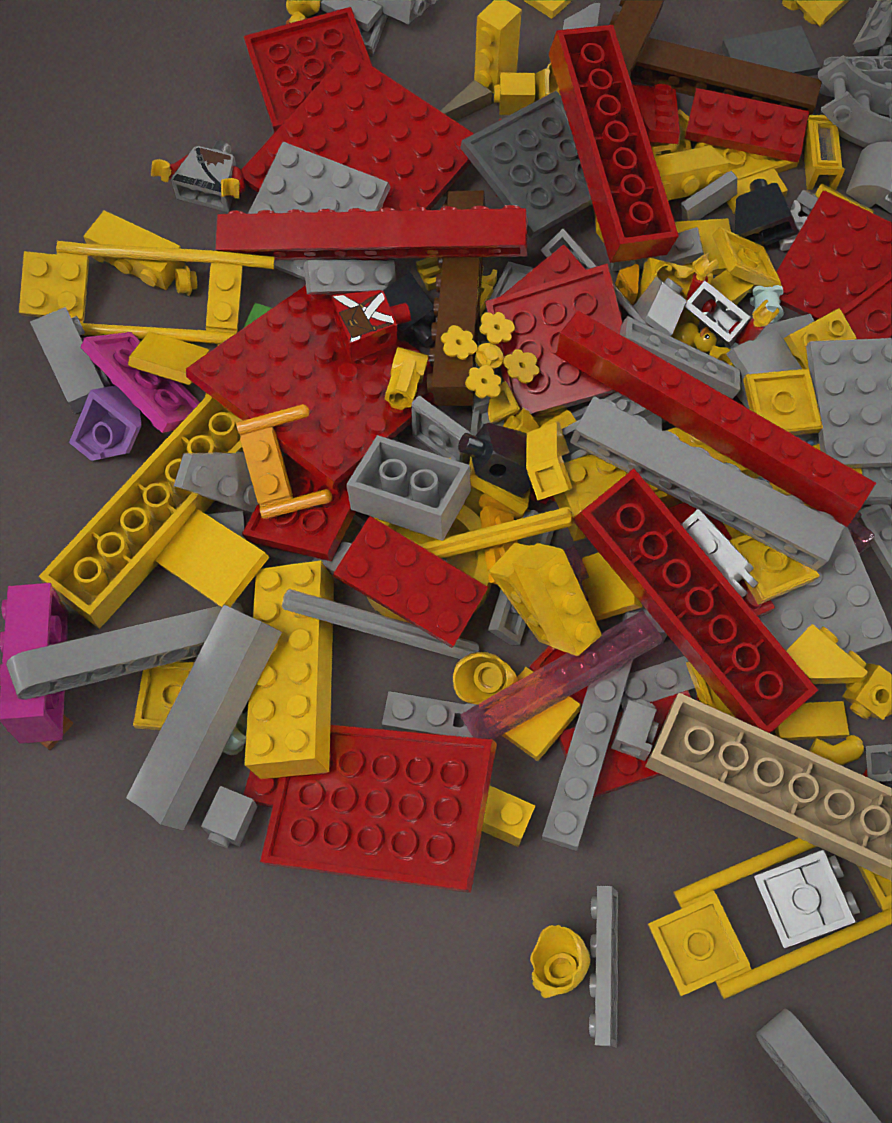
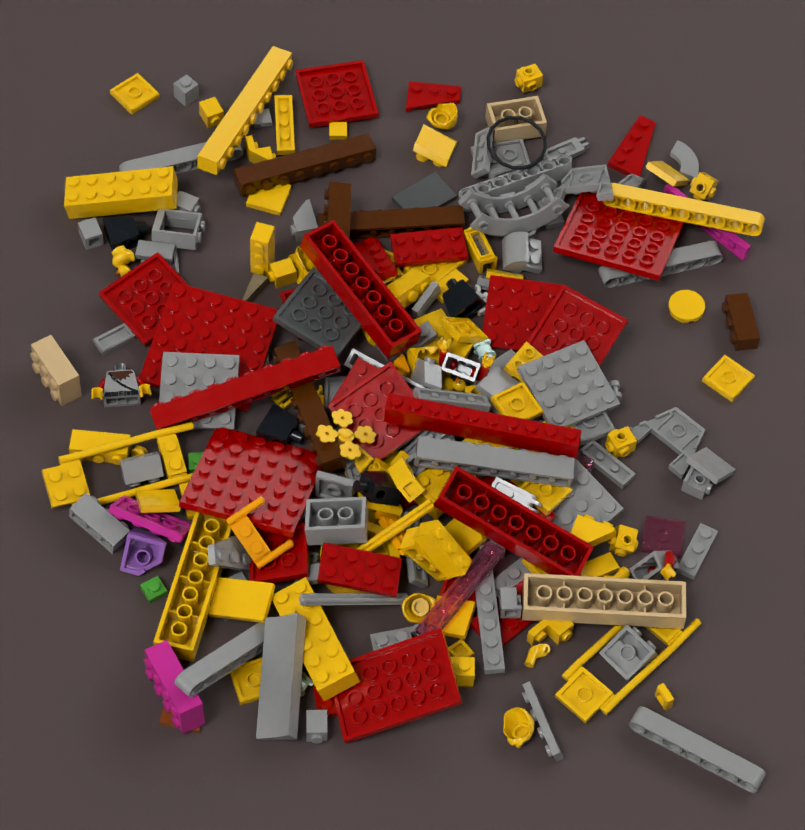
camera: 25 degrees left, 10 degrees down
(99, 489) = (153, 589): none -> bright green plate
(125, 120) = (55, 370): none -> tan brick
(172, 301) = (141, 468): none -> light grey brick
(237, 109) = (113, 339): none -> light grey tile
(348, 276) = (239, 418): light grey plate -> none
(367, 321) = (266, 440): red torso -> none
(406, 374) = (302, 460): yellow piece -> none
(521, 778) = (460, 649): none -> yellow tile
(649, 831) = (536, 652): none -> yellow arm
(697, 806) = (555, 629): none -> yellow slope
(839, 1007) = (664, 697): none -> yellow tile

